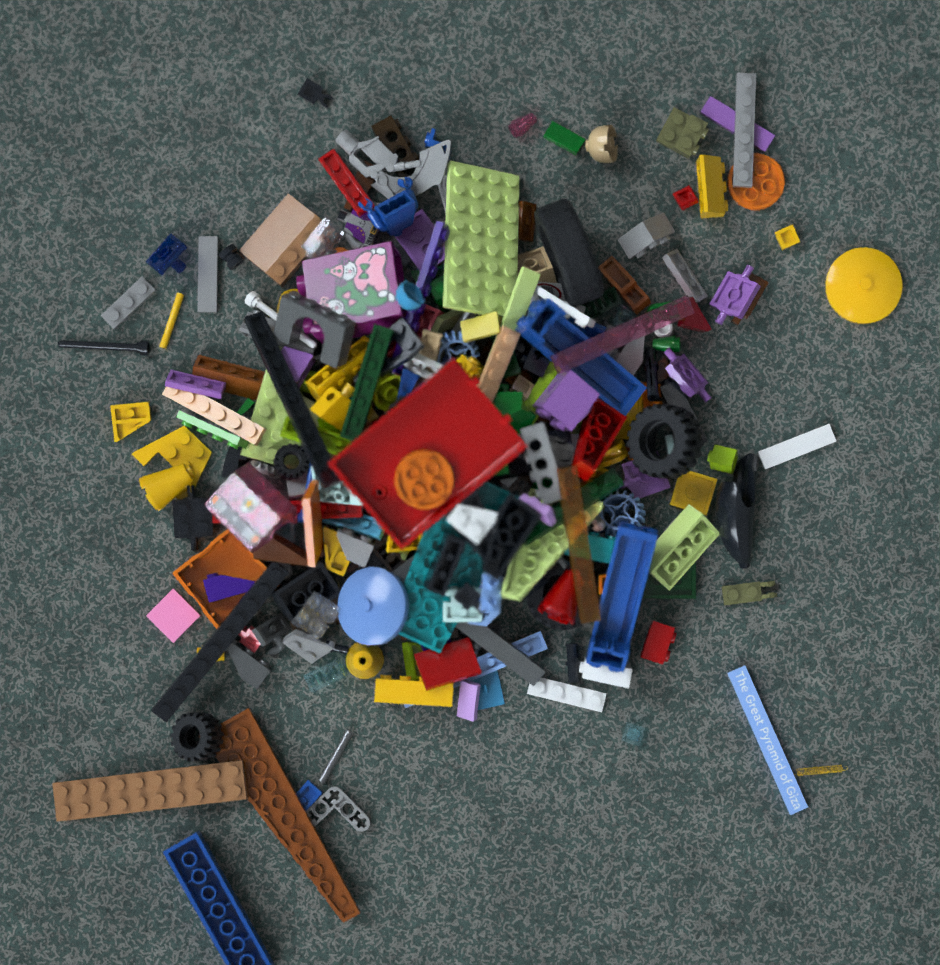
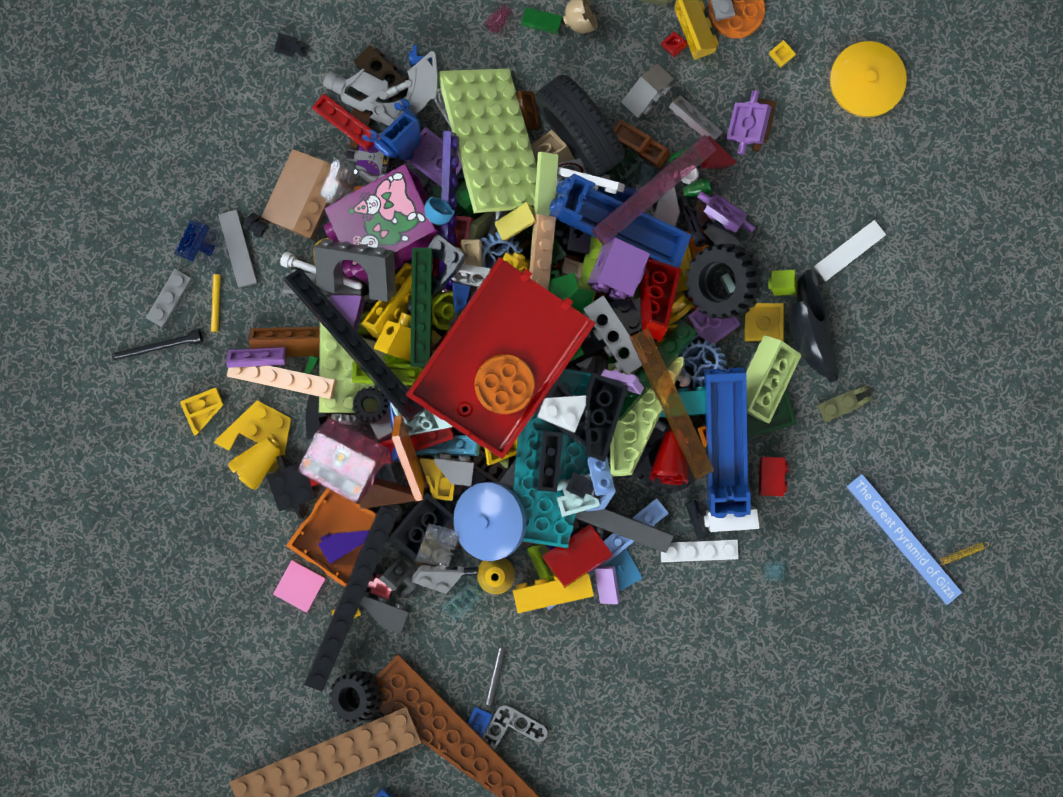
camera: 20 degrees left, 0 degrees up
(218, 434) = (291, 398): plate -> none

